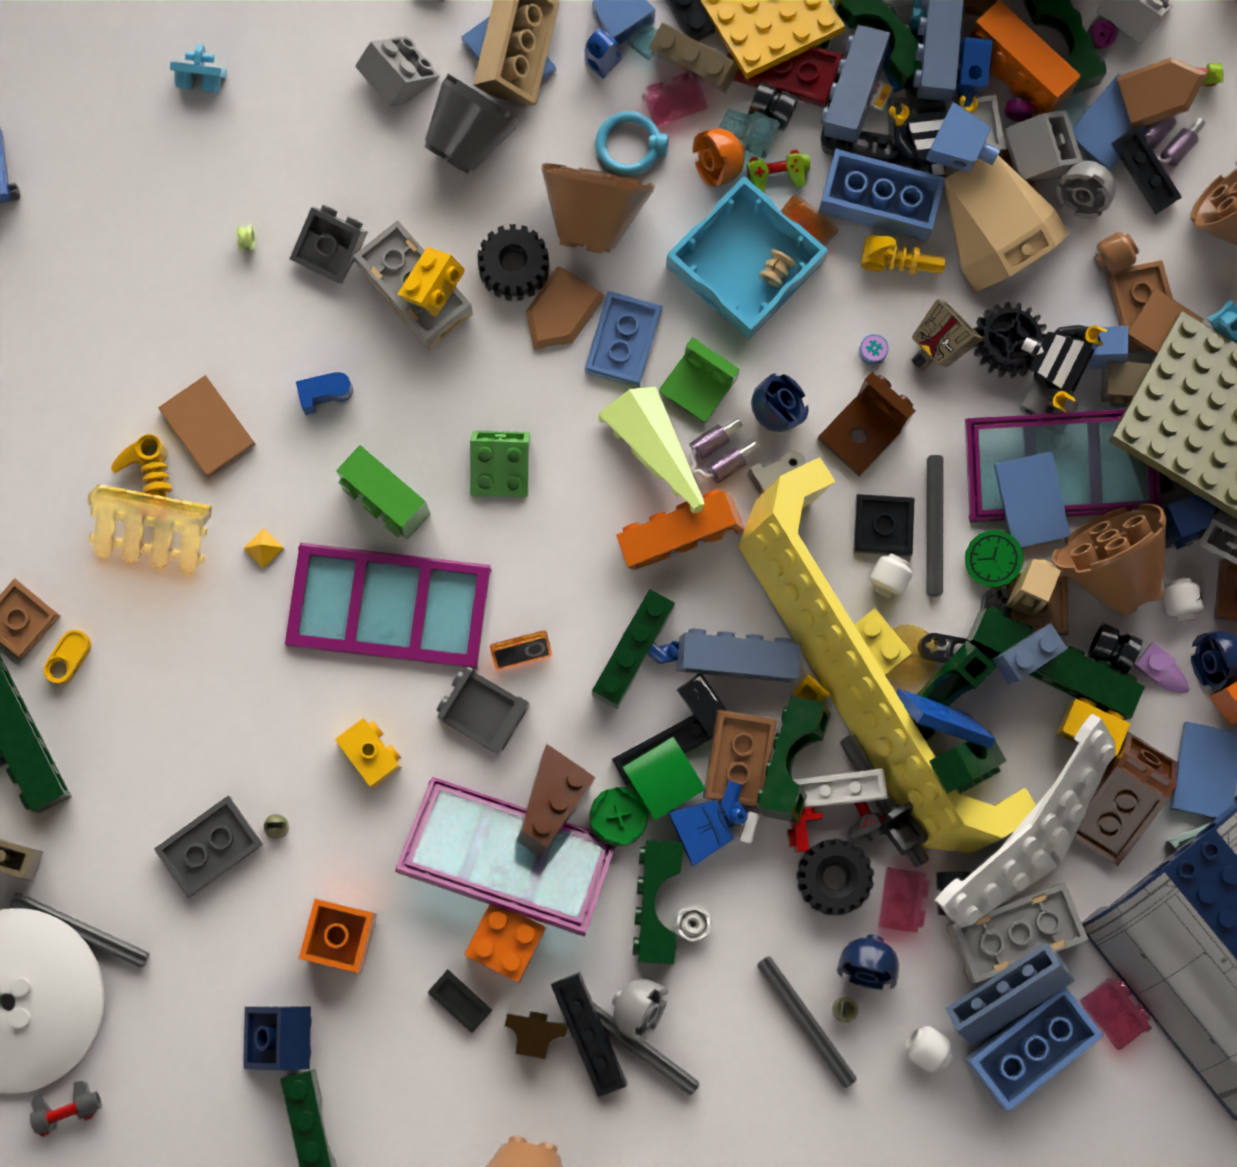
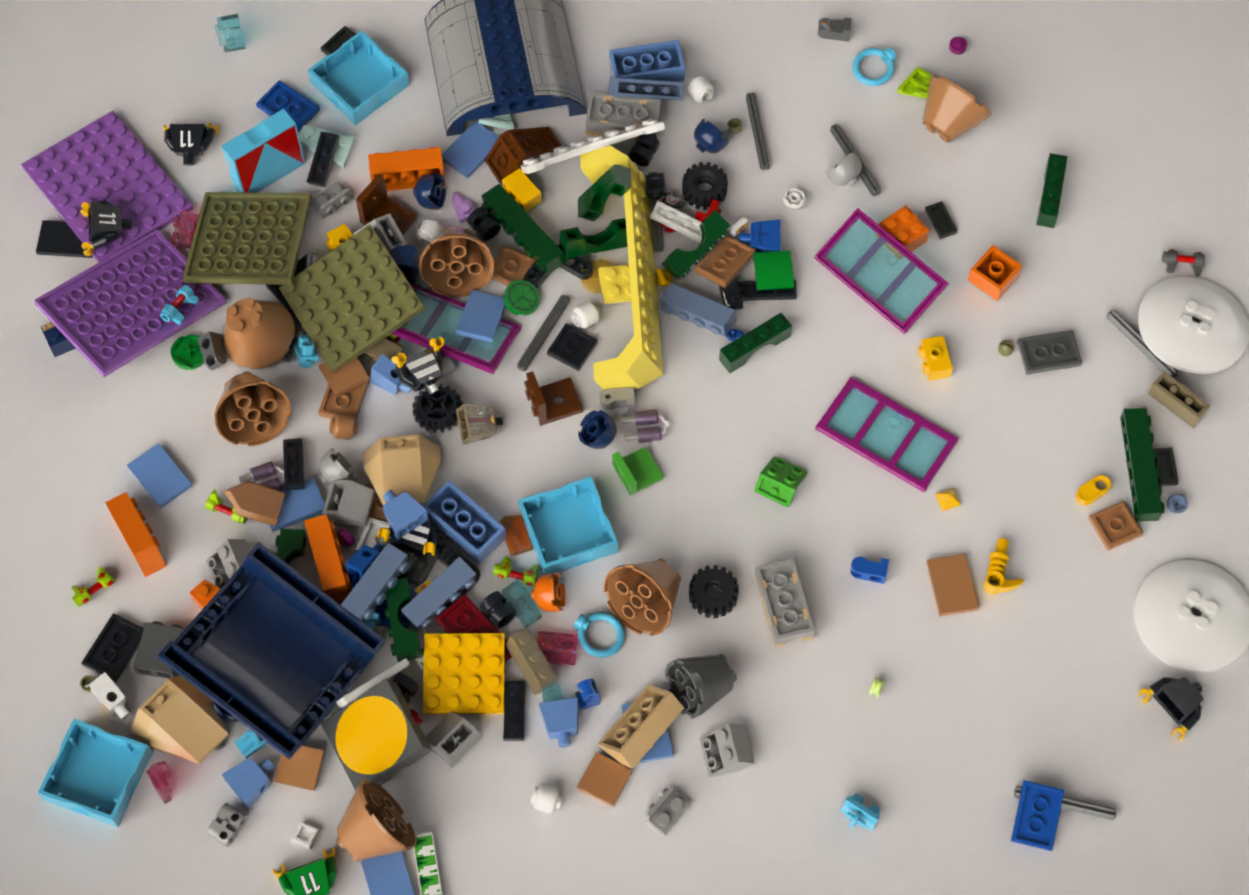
camera: 150 degrees left, 15 degrees down
(136, 512) = (1014, 543): clear yellow fence -> none
(277, 1037) = (1051, 242): dark blue slope -> none
(328, 243) = (824, 657): dark grey plate -> none
(382, 493) = (862, 486): bright green brick -> none
(432, 280) = (774, 586): yellow bracket -> none
(482, 710) = (857, 351): dark grey panel -> none
(520, 649) = (820, 376): slope -> none
(534, 1033) = (907, 185): dark brown brick -> none
(553, 799) = (842, 283): reddish brown wedge -> none
(561, 309) = (696, 553): medium nougat tile -> none
(589, 1034) = (878, 171): black tile -> none
(618, 816) = (808, 266): green tile -> none
(623, 339) = (668, 519): medium blue tile -> none
(645, 426) = (684, 450): yellowish green wedge -> none
(655, 941) = (797, 232): dark green arch -> none
(679, 530) = (693, 389): orange wedge -> none
(731, 806) = (743, 237): blue arm -> none
(776, 268) = (553, 510): tan bush -> none
(873, 349) = (520, 443): tile -> none
(884, 250) = (484, 490): yellow piece -> none
(903, 900) = (673, 161): clear pink bracket -> none
(945, 719) = (605, 218): blue tile -> none
(1029, 654) = (538, 227): sand blue brick -> none
(1034, 587) = (512, 263): tan brick -> none
(1116, 1012) = (593, 66): clear pink bracket -> none

